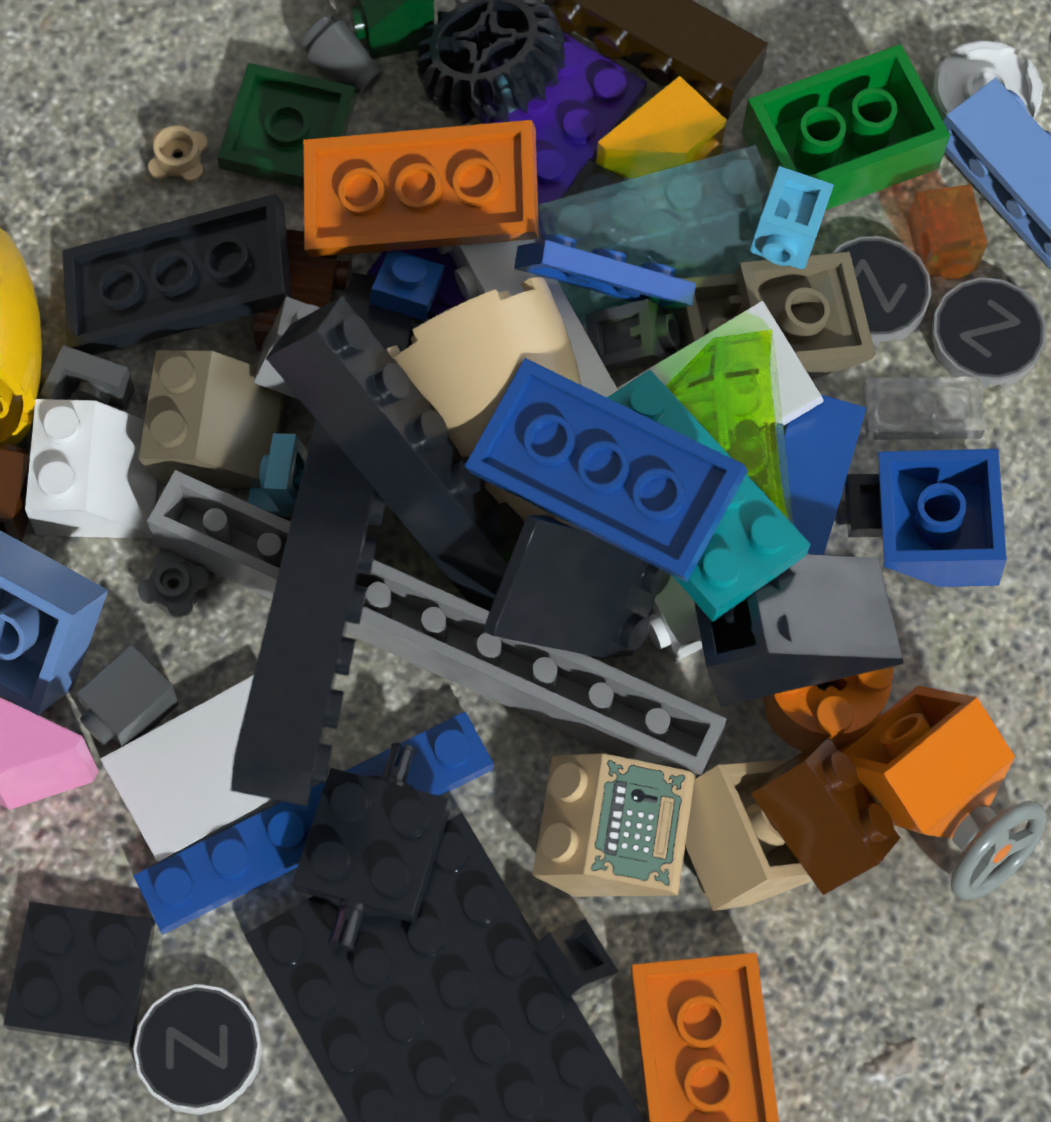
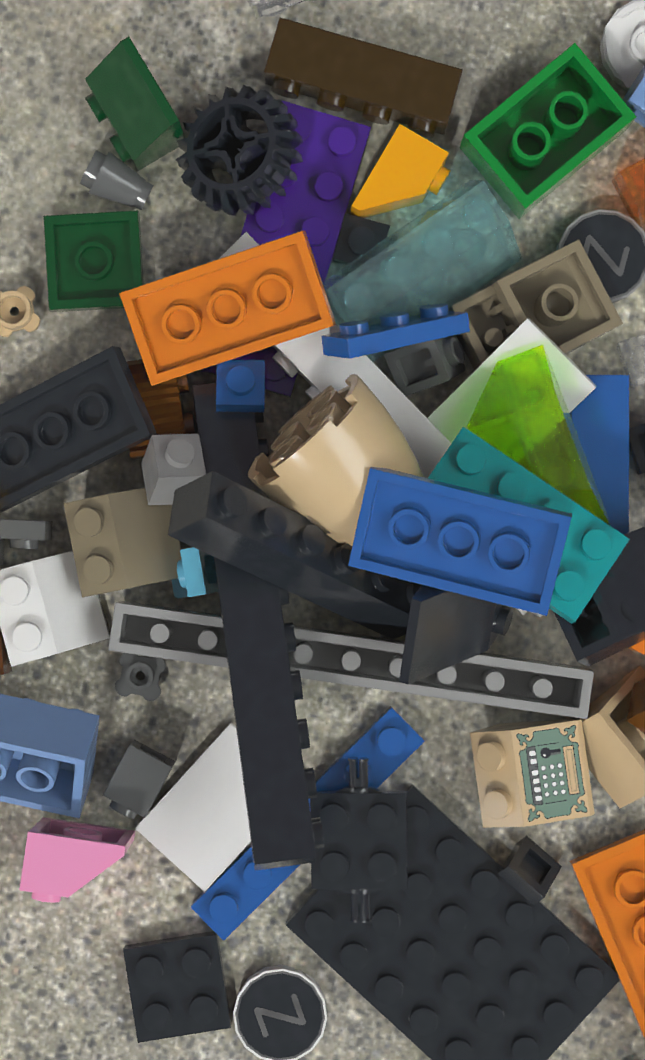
camera: 10 degrees left, 20 degrees up
(791, 218) = (530, 235): medium azure bracket -> none

